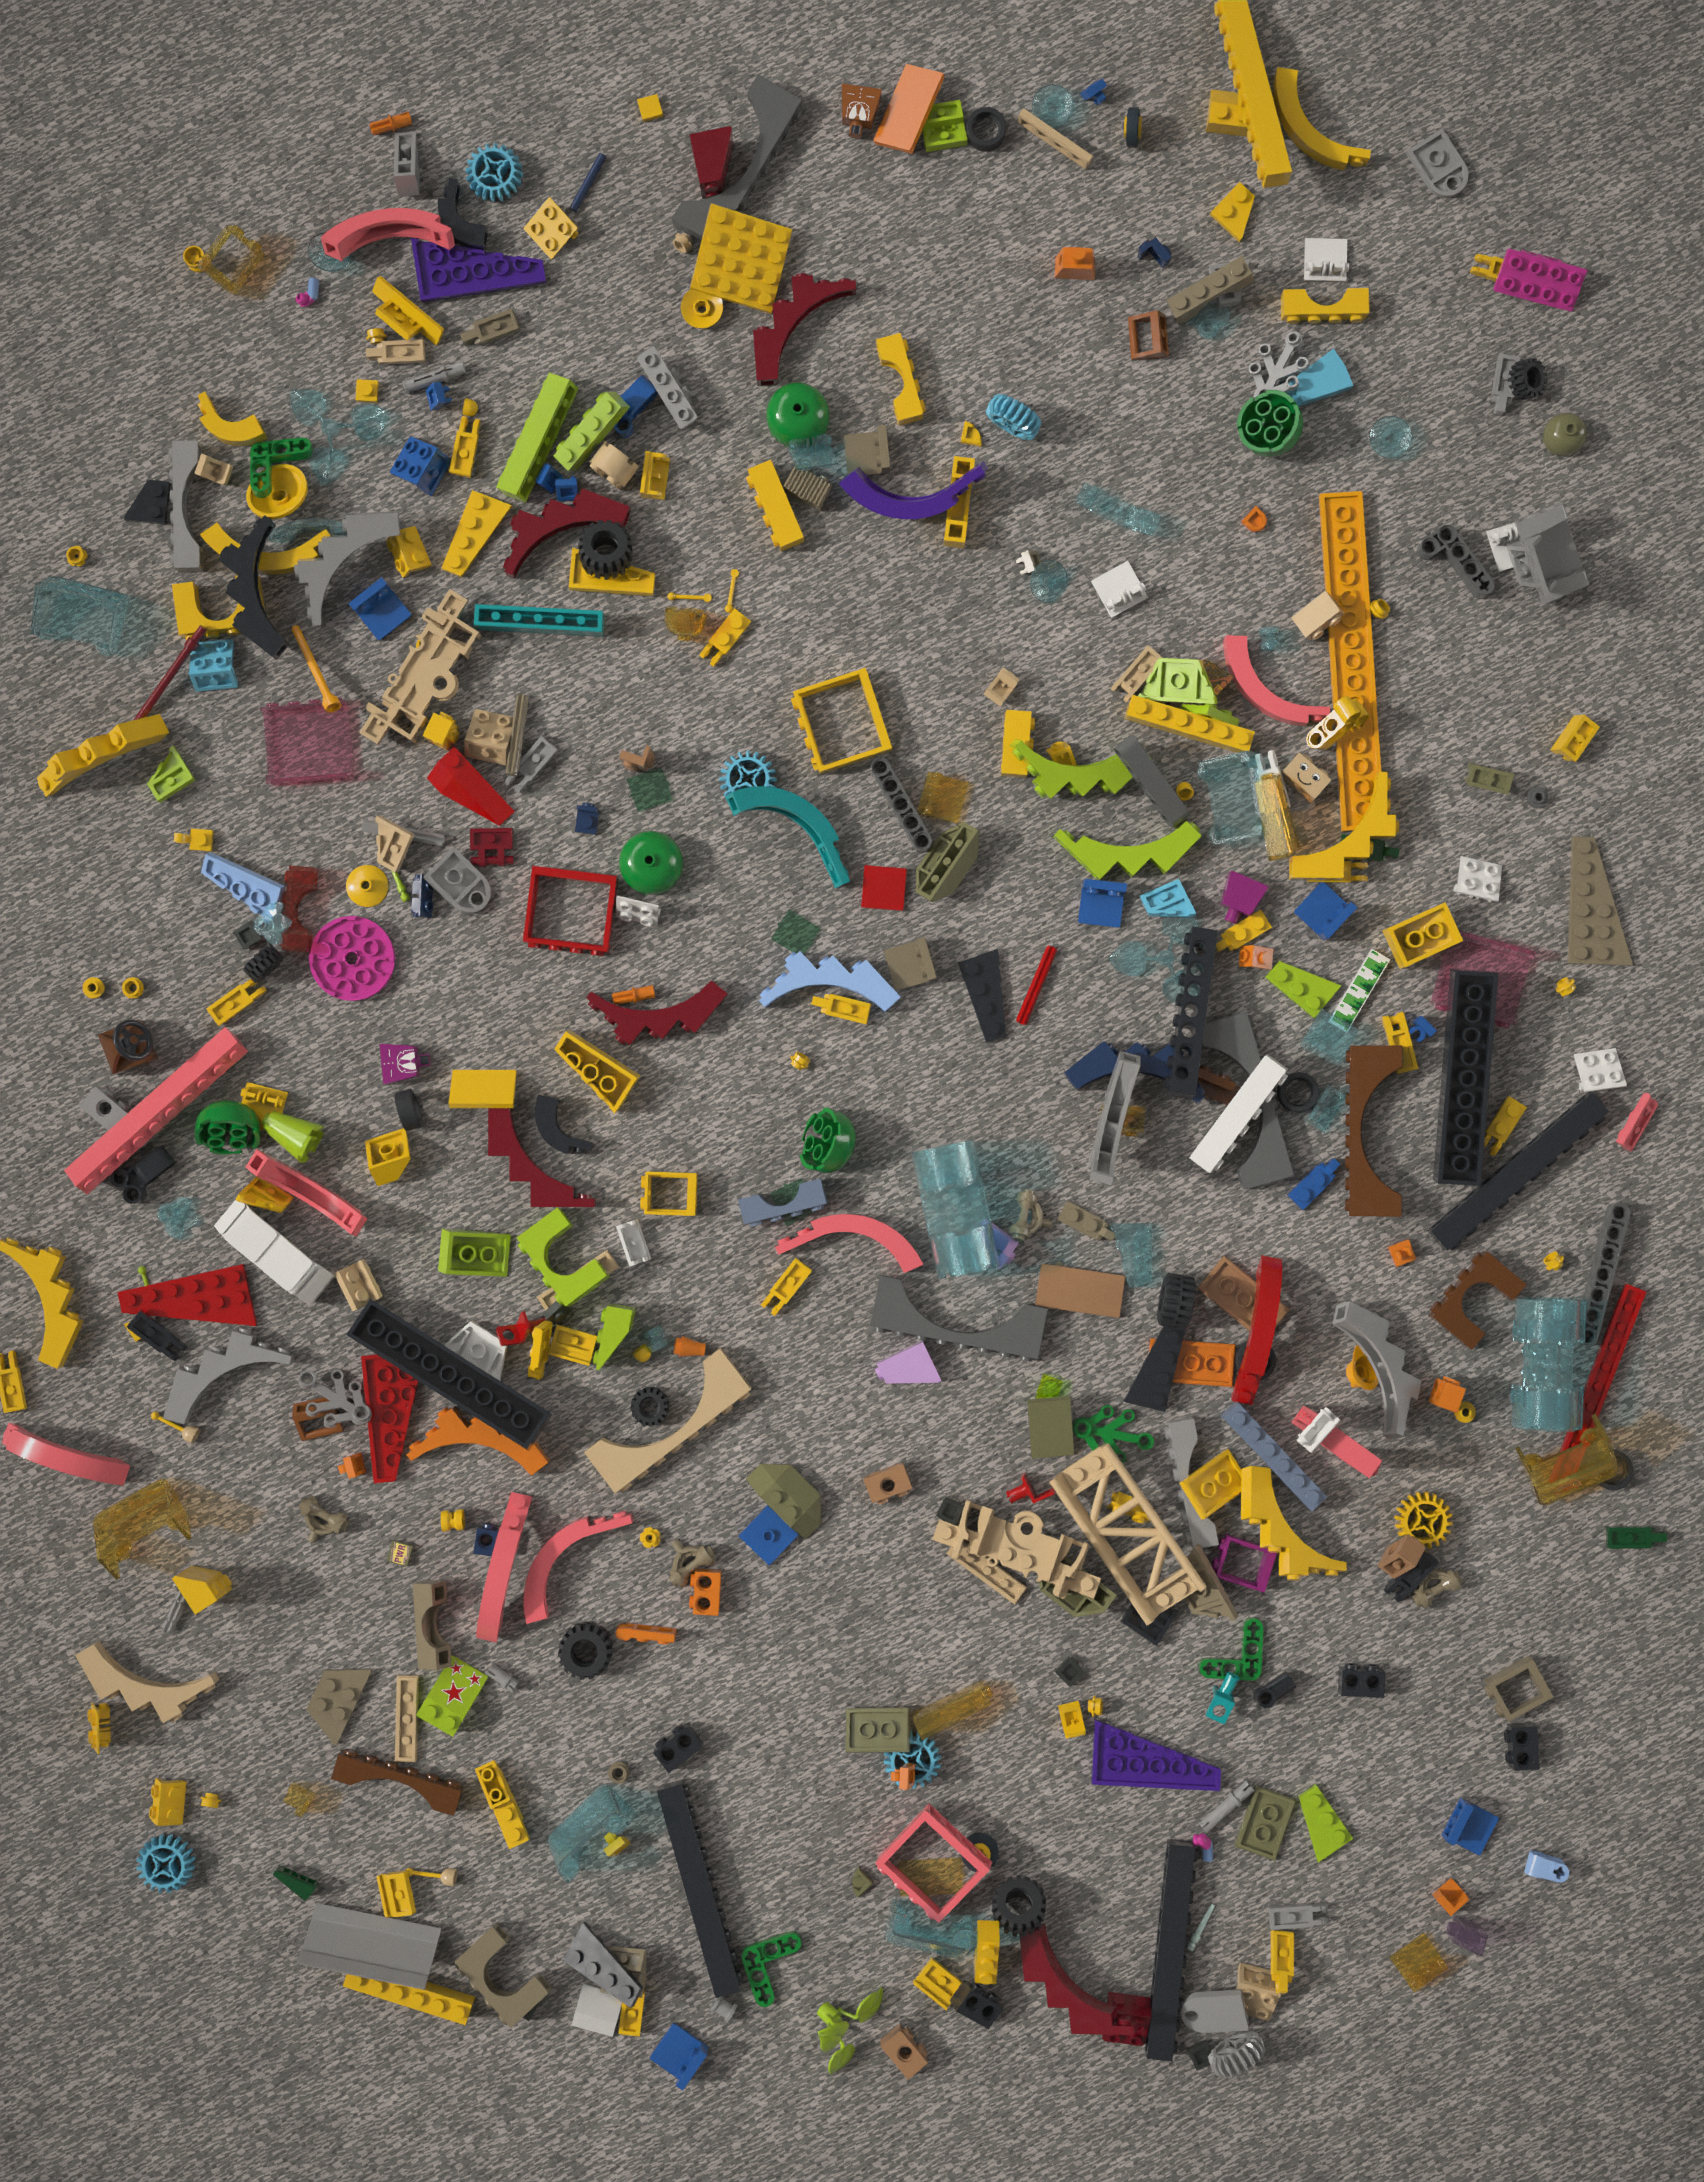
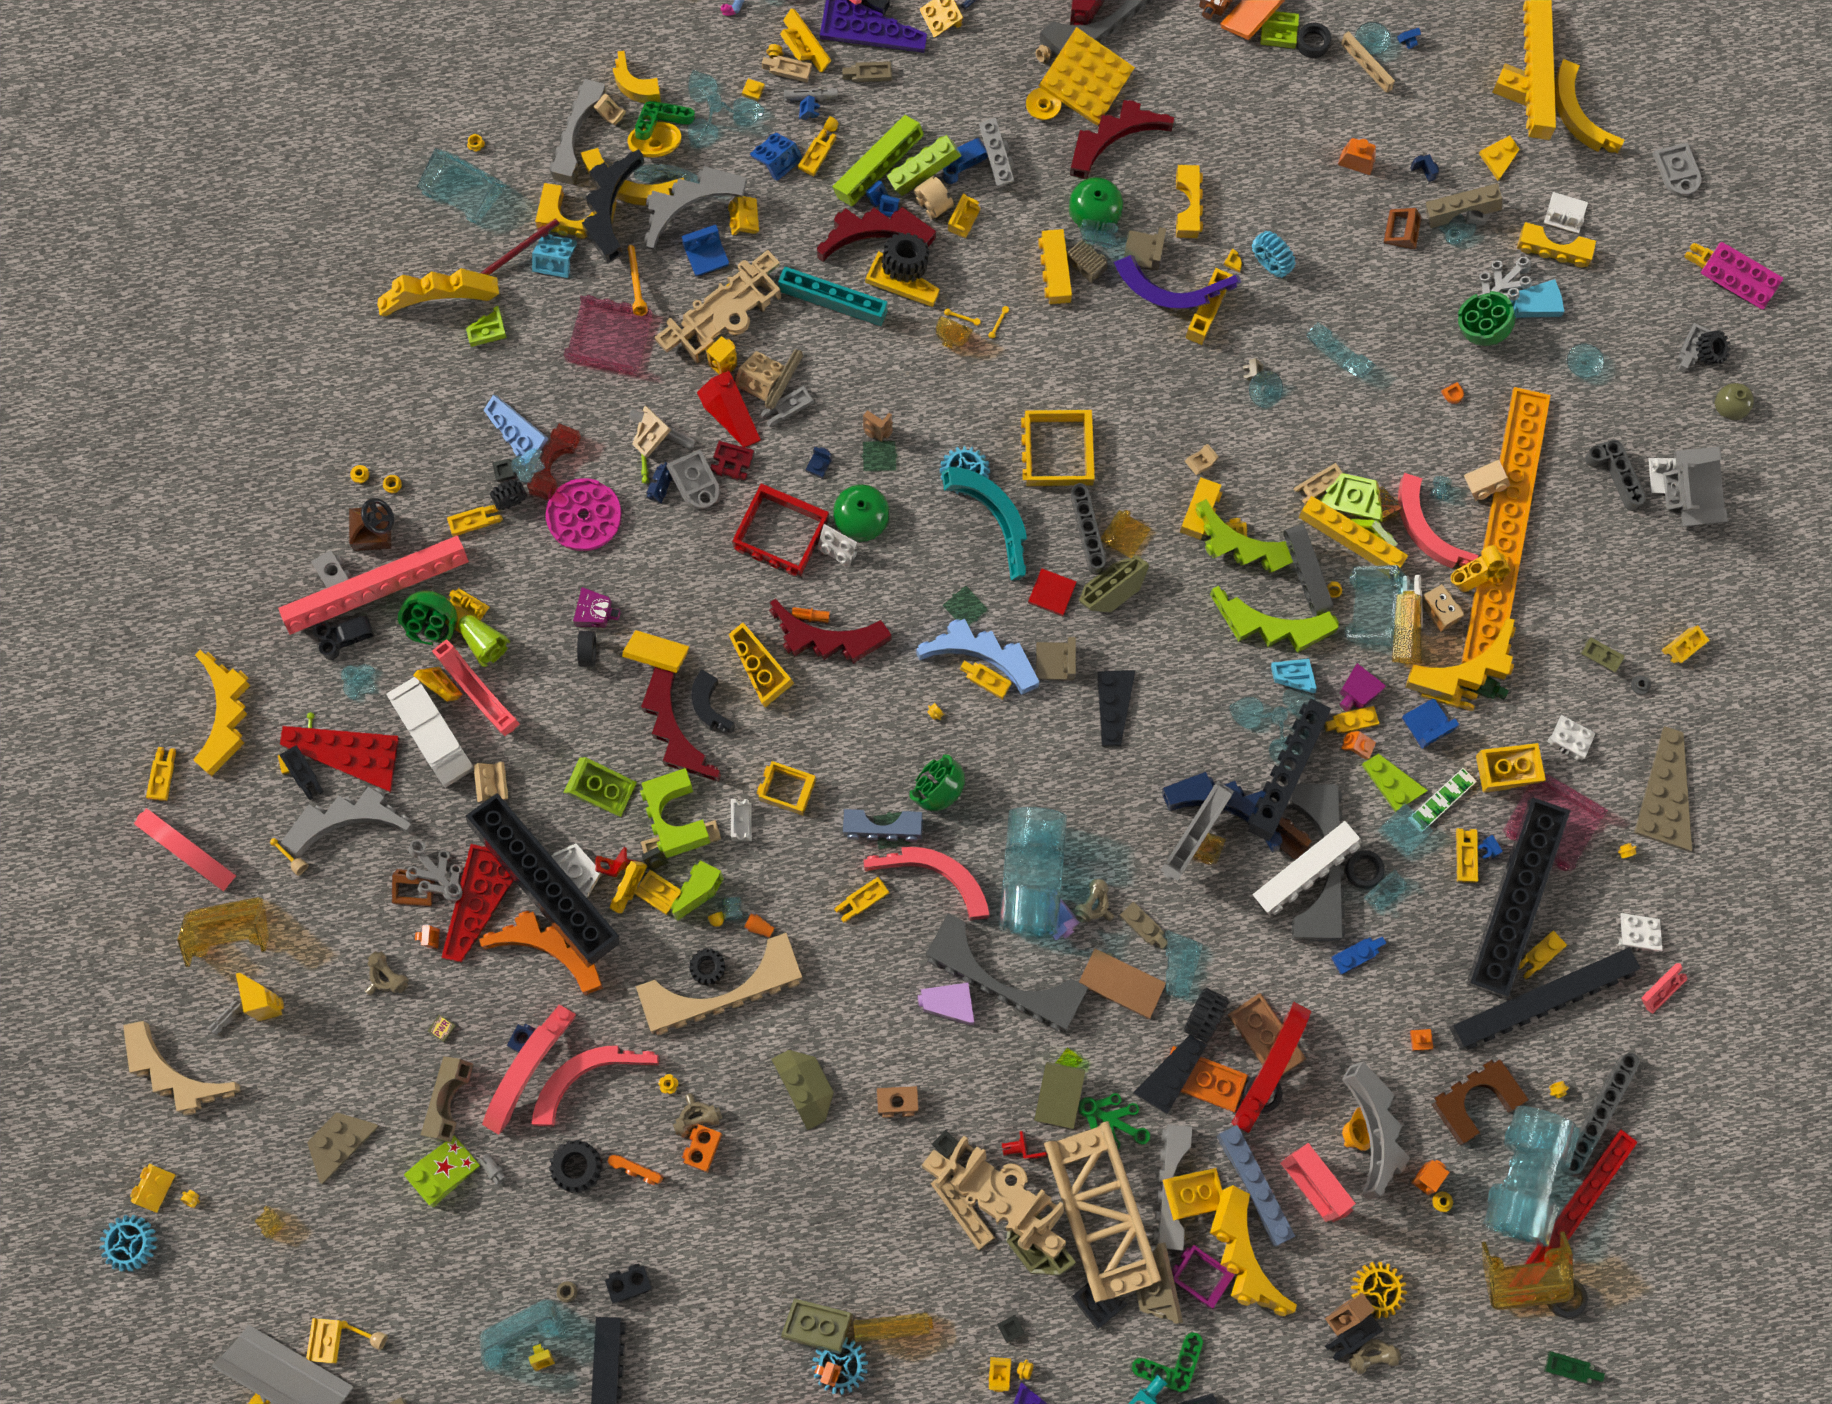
camera: 15 degrees right, 15 degrees down
(96, 1738) = (118, 1086): yellow hinge -> none
(150, 504) = (549, 122): black wing -> none
(198, 839) = (490, 385): yellow plate -> none
(298, 1883) = (239, 1300): dark green slope -> none
(377, 889) = (620, 469): yellow dish -> none
(388, 1156) = (554, 683): yellow slope -> none
(406, 1720) = (393, 1180): tan tile -> none
(440, 1794) = (397, 1258): reddish brown arch -> none
(452, 1520) = (498, 1012): yellow wheel -> none
(476, 526) = (802, 216): yellow wing -> none
(503, 1804) = (451, 1285): yellow slope -> none
(726, 636) = (982, 355): yellow hinge -> none
(768, 1535) = (775, 1115): blue plate -> none
(1036, 985) = (1159, 711): red axle -> none
(1101, 903) = (1237, 657): blue bracket -> none
(1119, 589) = (1324, 414): white hinge -> none
(1132, 127) = (1433, 70): black wheel -> none
(1136, 1513) = (1114, 1199): yellow hinge -> none
(1318, 1429) = (1298, 1157): white hinge -> none
(1366, 1190) = (1433, 867): reddish brown arch -> none
(1379, 608) = (1541, 492): yellow plate -> none

